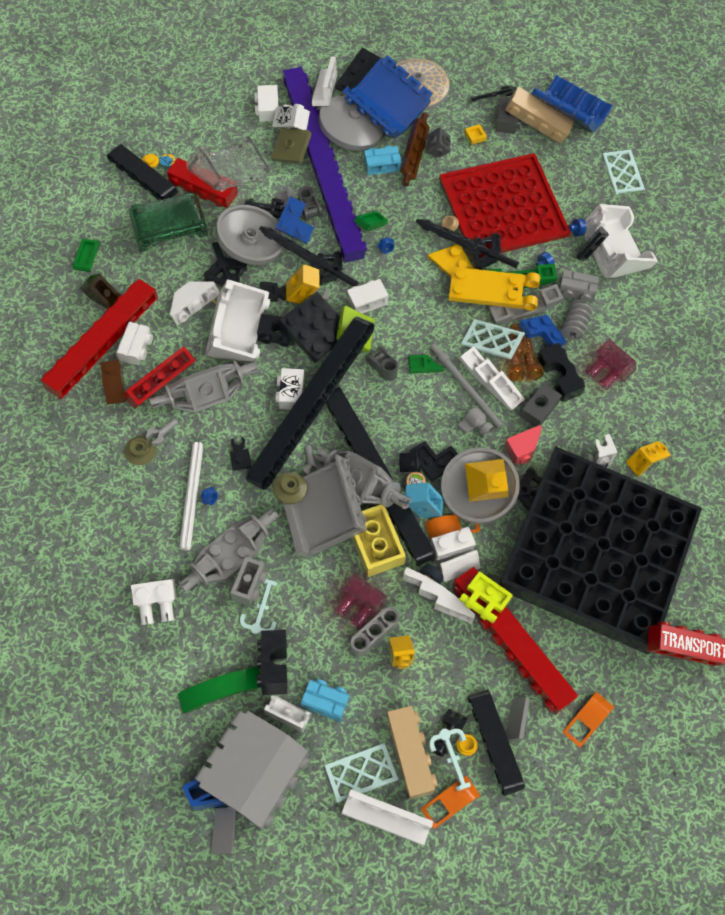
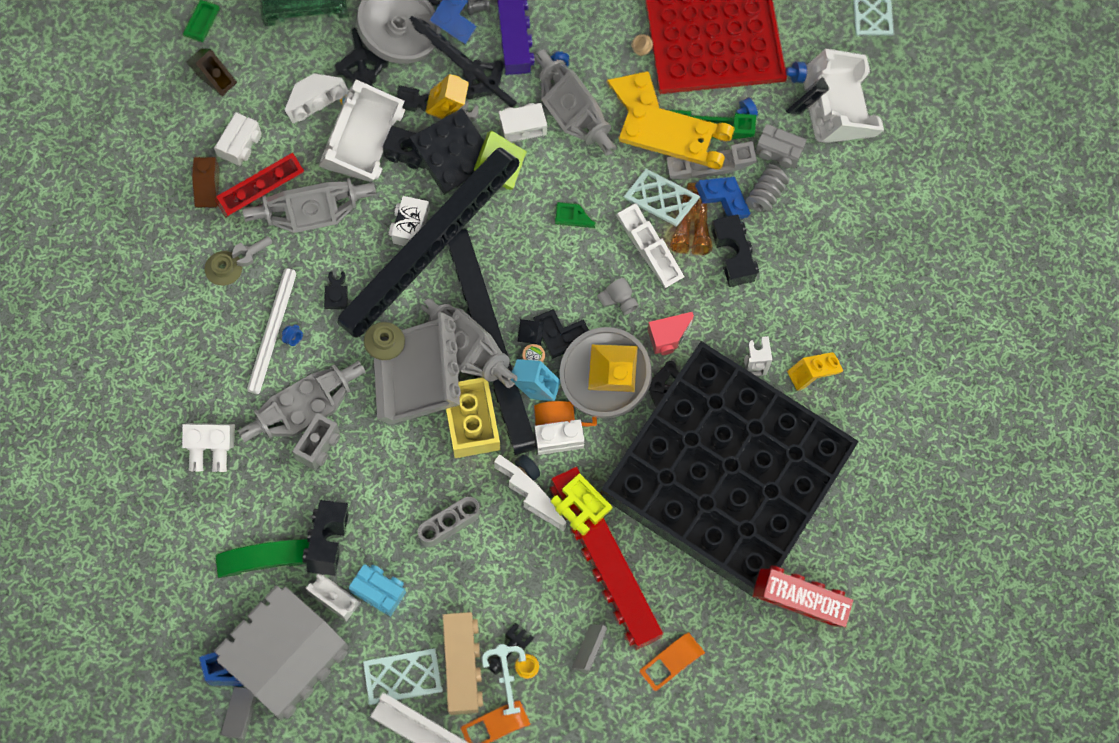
camera: 10 degrees right, 5 degrees up
(99, 339) = (199, 126): red brick -> none
(256, 628) = (317, 495): light aqua piece -> none
(310, 460) = (417, 311): light grey bar -> none
(364, 596) = (445, 479): clear pink brick -> none
(371, 220) = (547, 27): green tile -> none
(381, 361) = (523, 205): dark grey piece -> none
(401, 651) = (473, 550): yellow slope -> none
(405, 275) = (572, 103): none -> light grey plate
(444, 360) = (599, 214): light grey bar -> none
(457, 566) = (560, 462): white slope -> none
(475, 246) = (664, 79): black bar -> none
(498, 746) = (559, 669): black beam -> none
(544, 396) = (705, 276): dark grey brick -> none
(616, 361) = (799, 243): clear pink brick -> none

